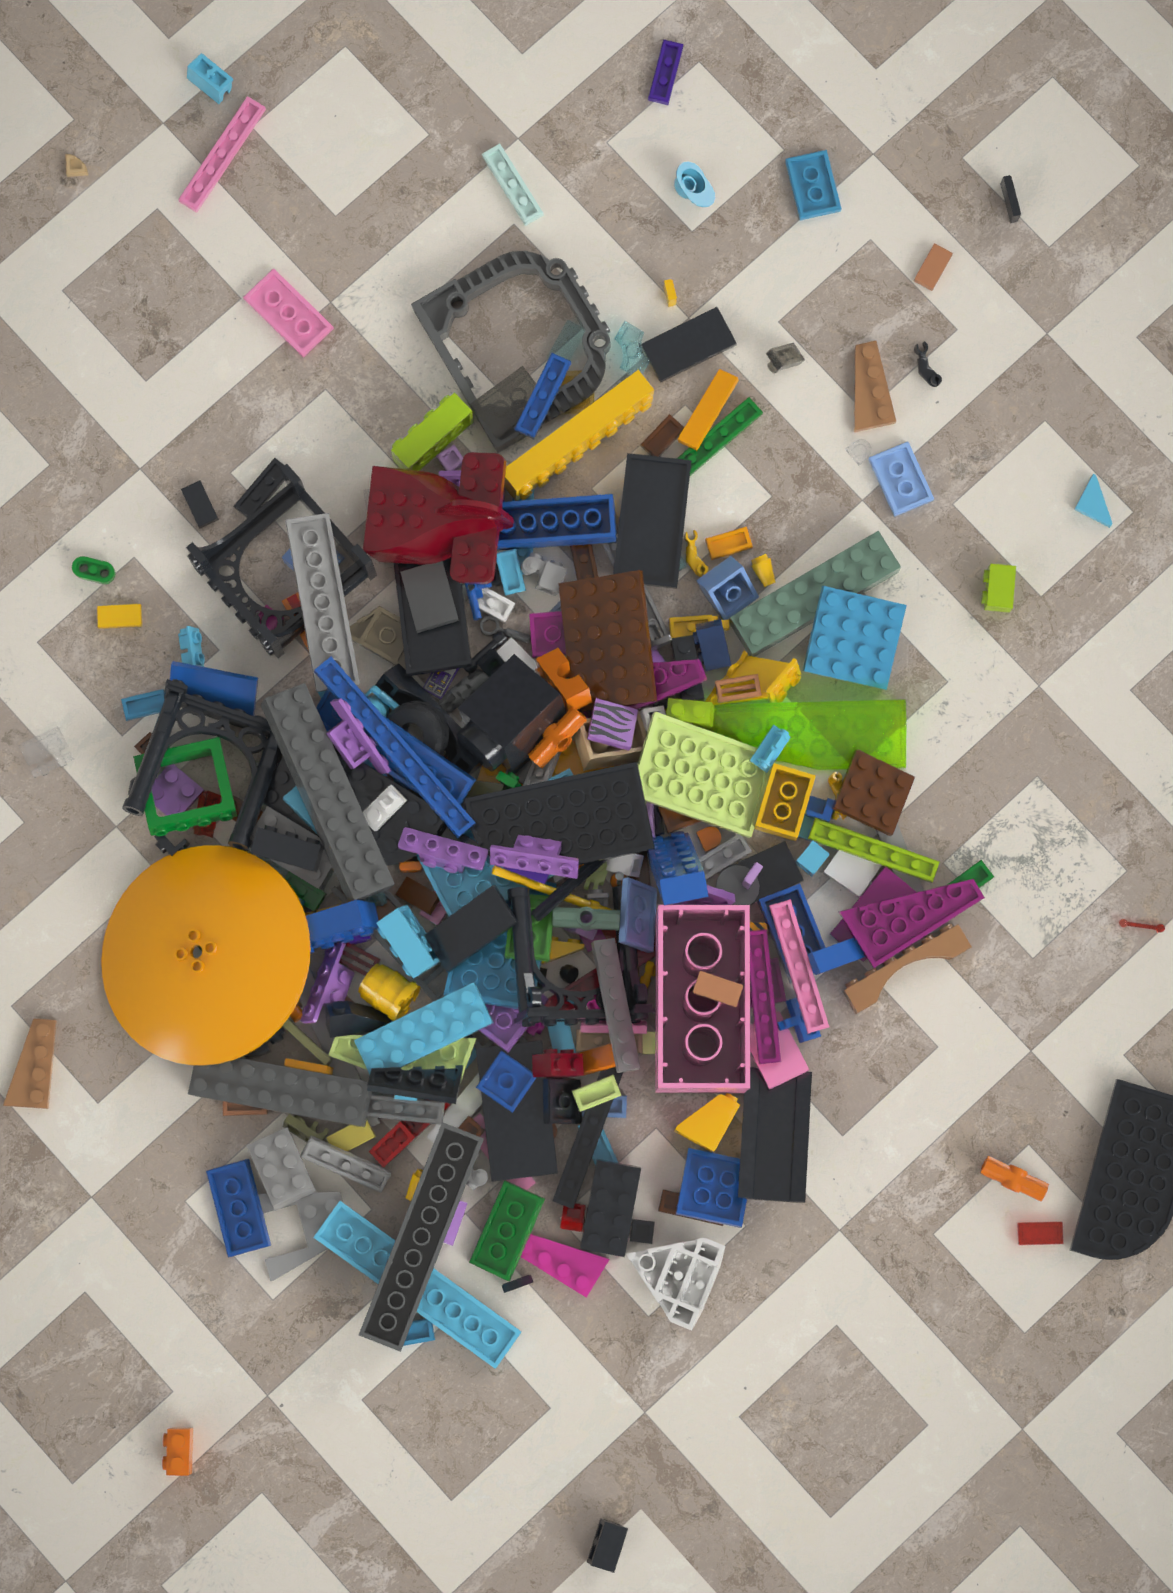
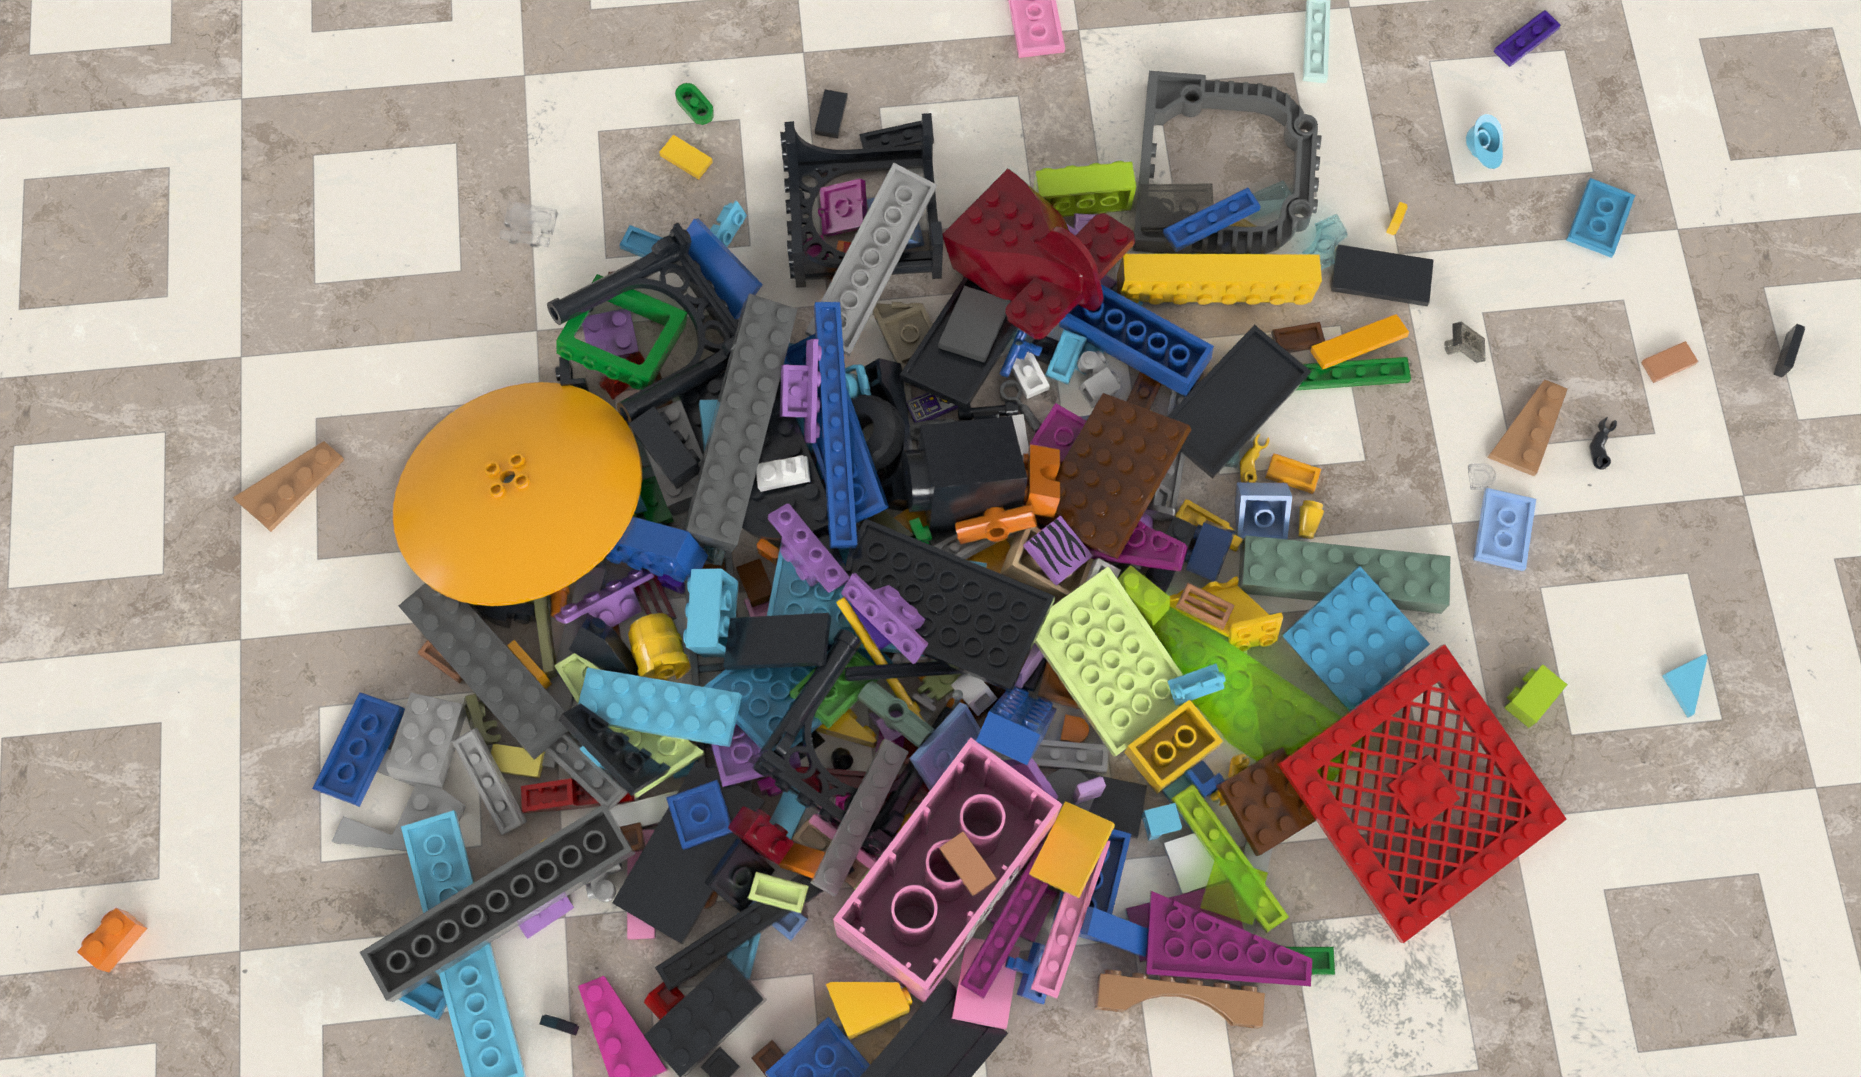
camera: 35 degrees right, 10 degrees down
(268, 574) = (843, 207): none -> magenta plate
(507, 1230) = (589, 963): green tile -> none
(770, 923) = (1072, 849): none -> yellow tile
(892, 870) = (1234, 890): none -> clear neon green tile
(969, 712) = (1422, 793): none -> red plate

